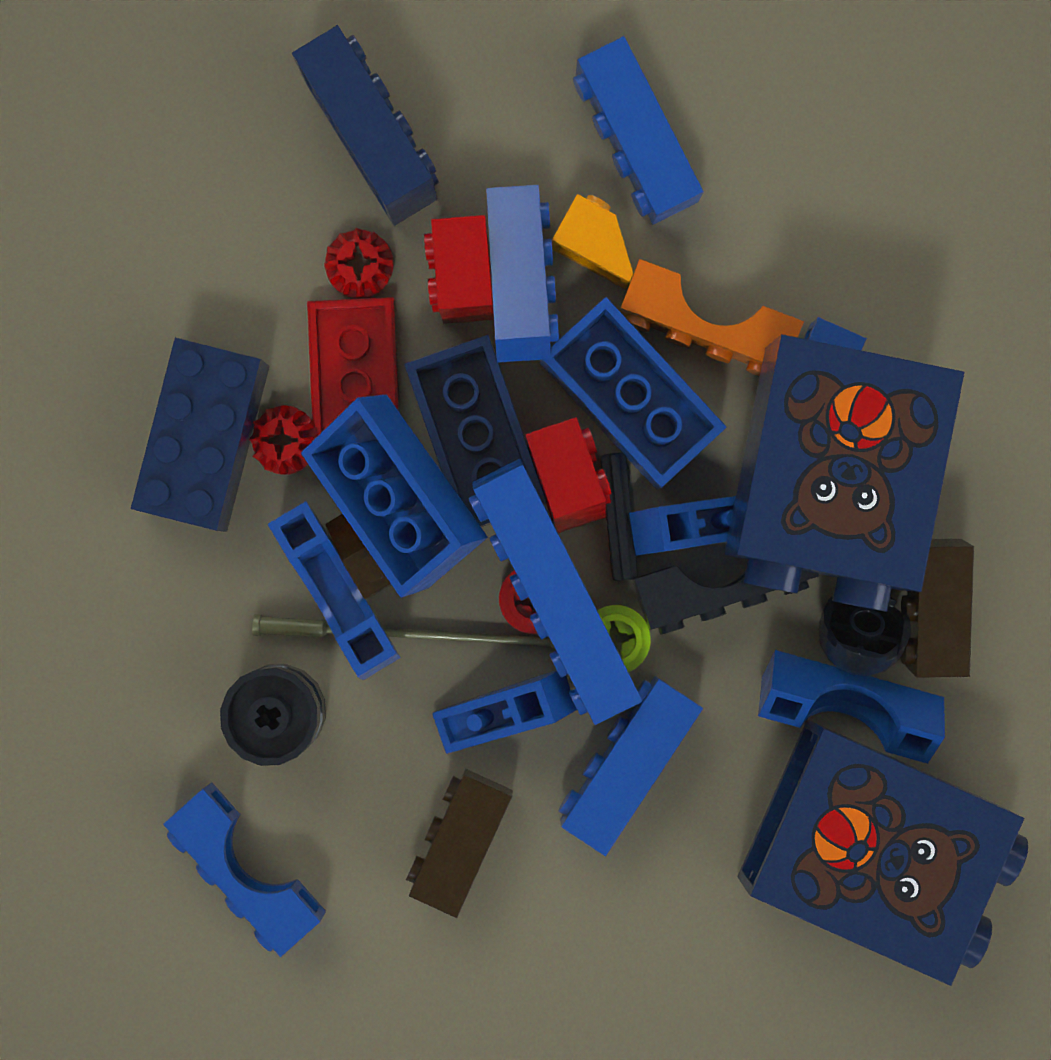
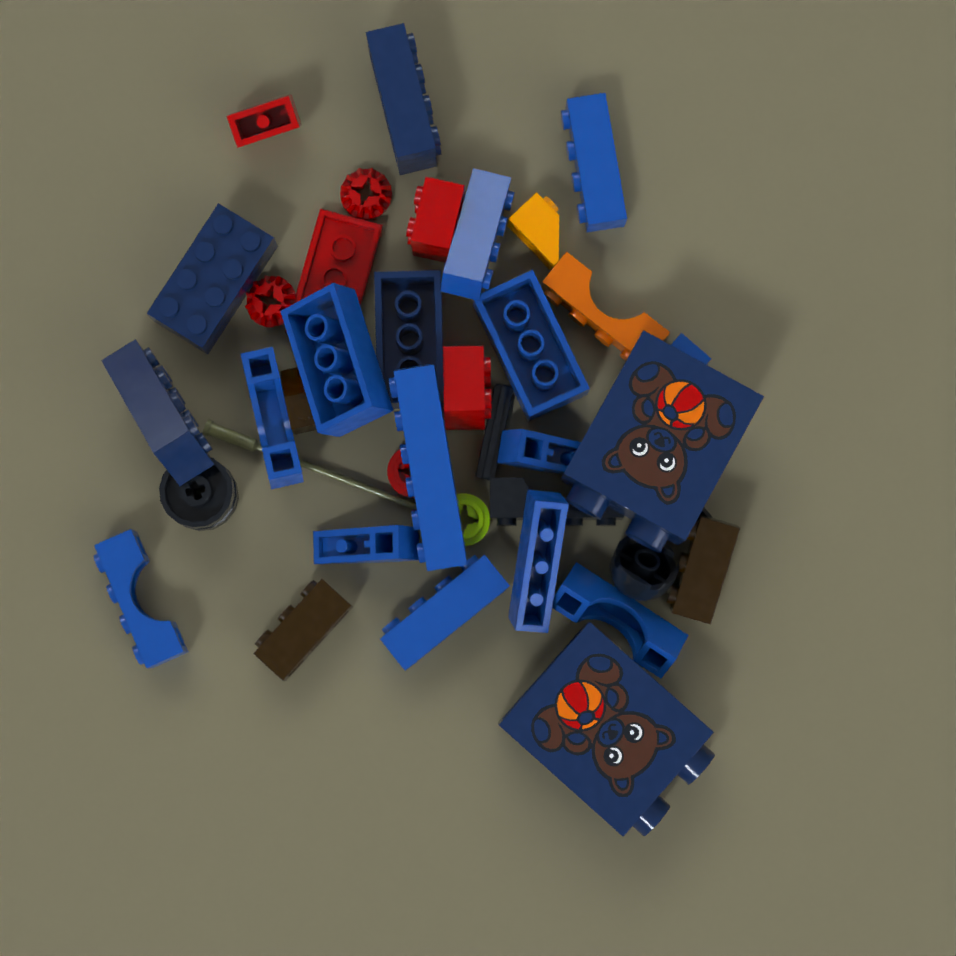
camera: 20 degrees right, 5 degrees down
(187, 634) = (159, 411): none -> dark blue brick
(198, 211) = (264, 120): none -> red brick
(730, 667) = (538, 561): none -> blue brick

